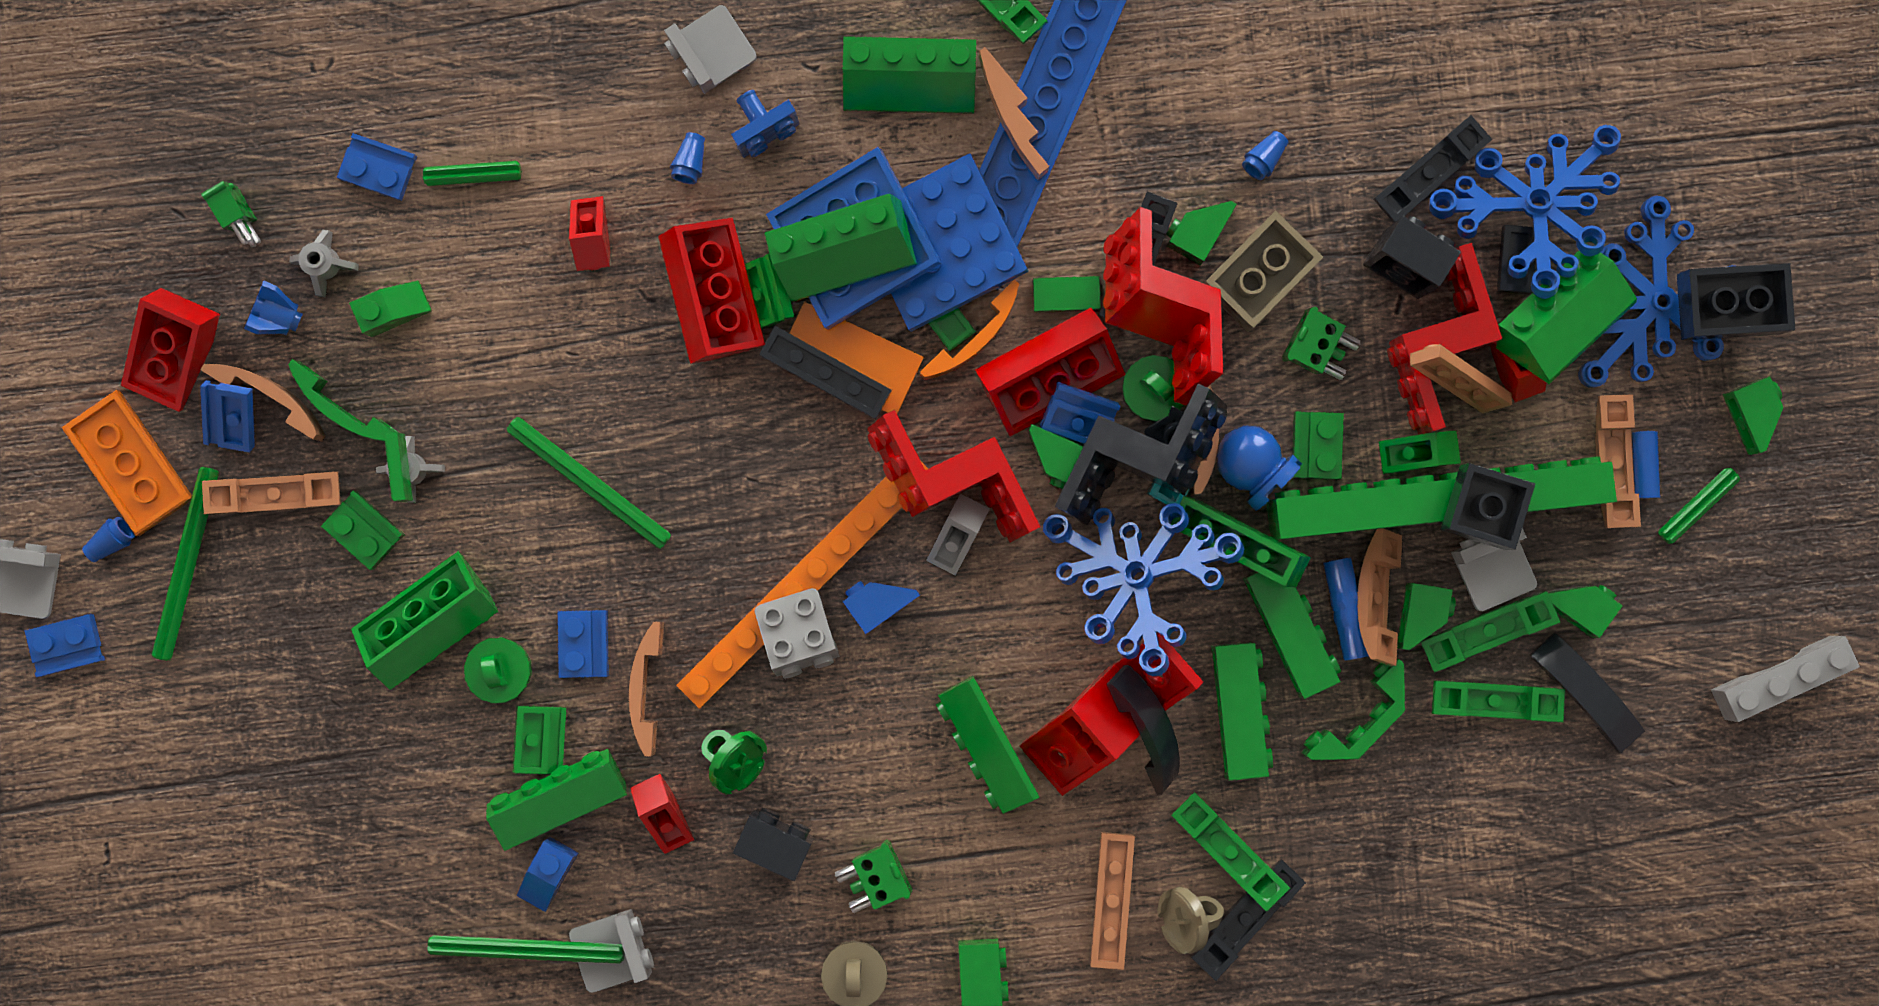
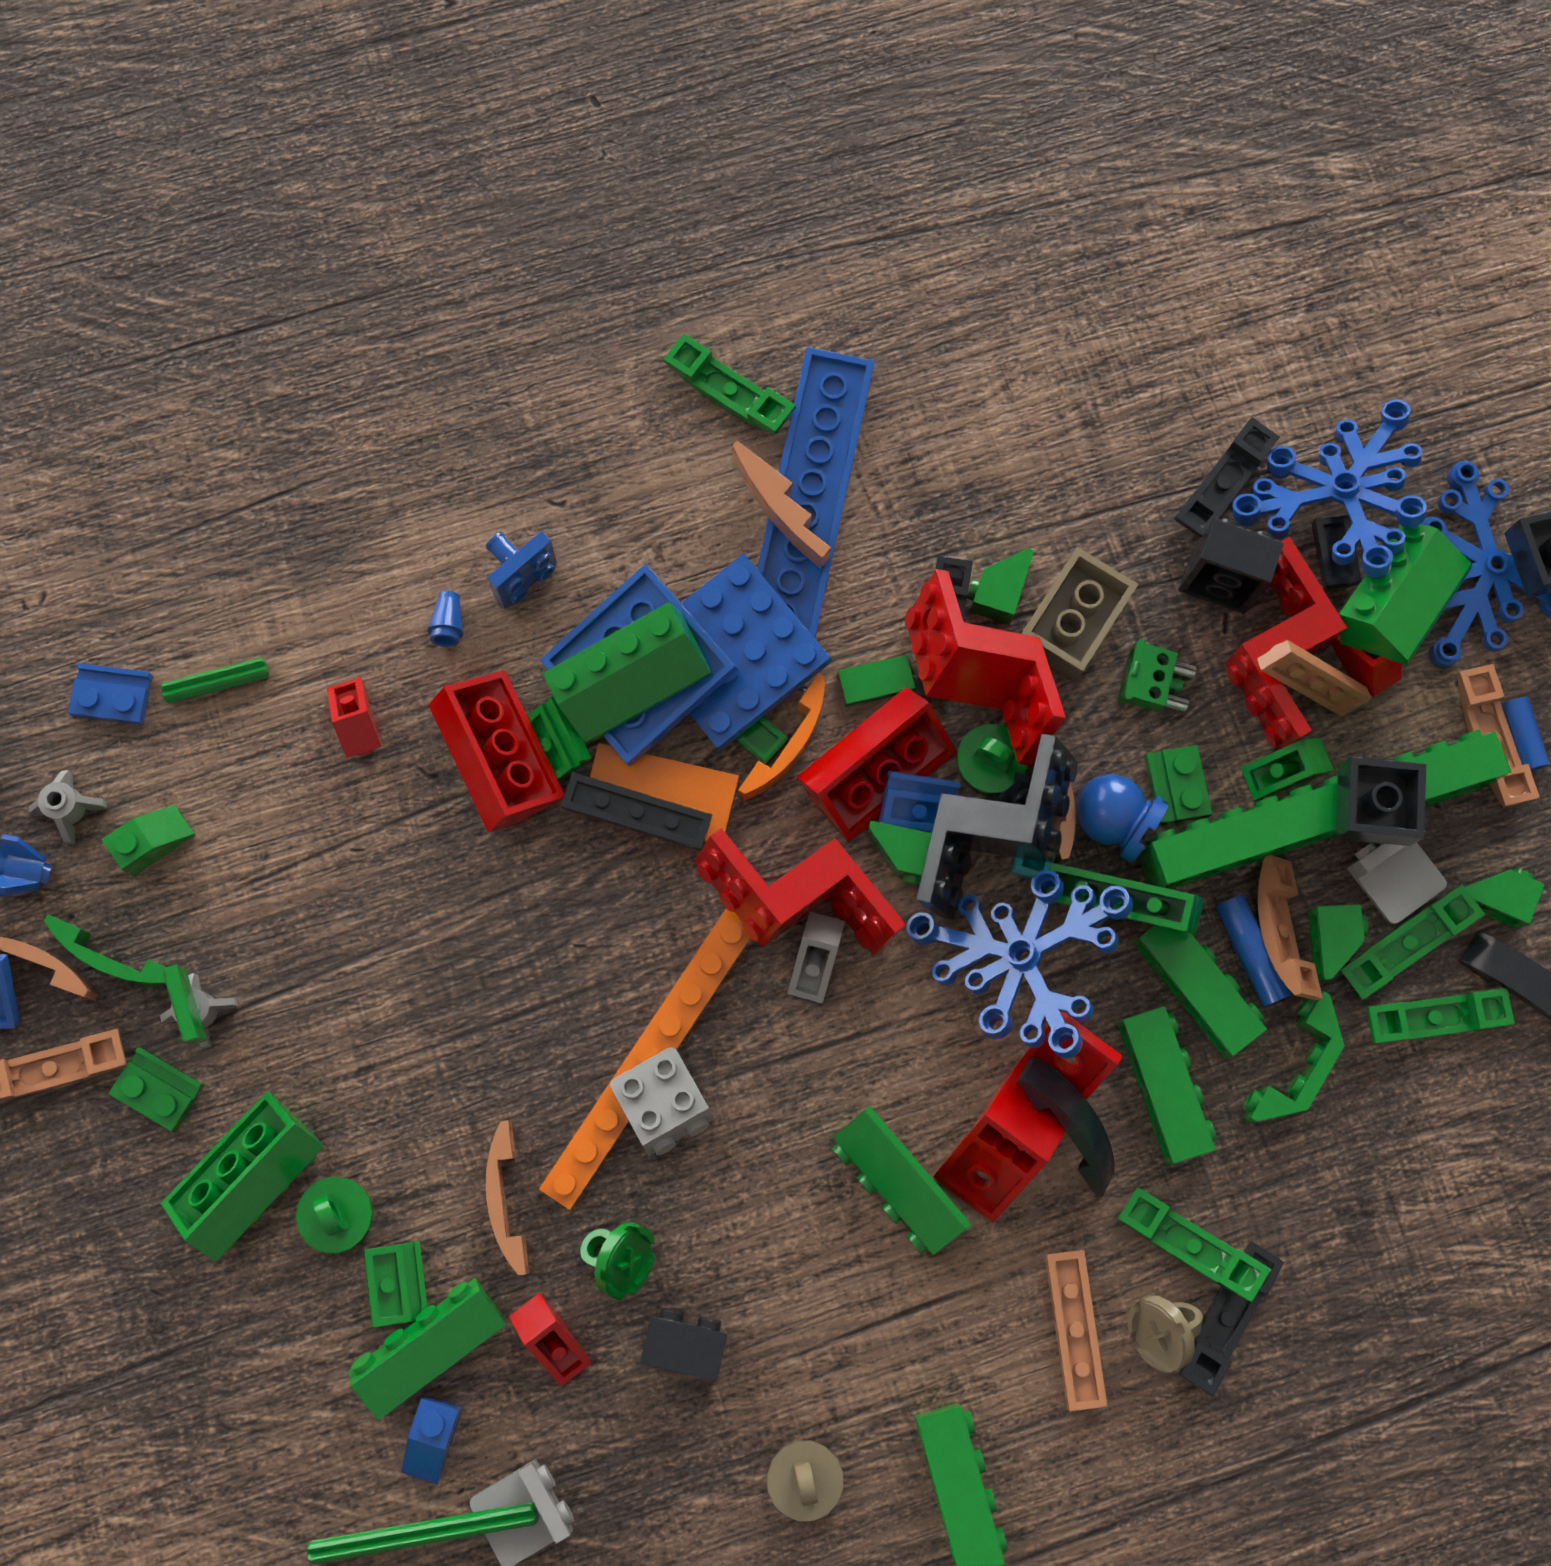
camera: 15 degrees left, 10 degrees down
(583, 643) = (425, 1165): blue plate -> none
(588, 482) = (400, 984): green axle -> none
(710, 48) = (448, 503): light grey bracket -> none
(876, 602) = (743, 1049): blue slope -> none
(887, 868) = (819, 1349): green piece -> none
(909, 75) = (663, 488): green slope -> none
(1264, 156) = (1050, 500): blue cone -> none

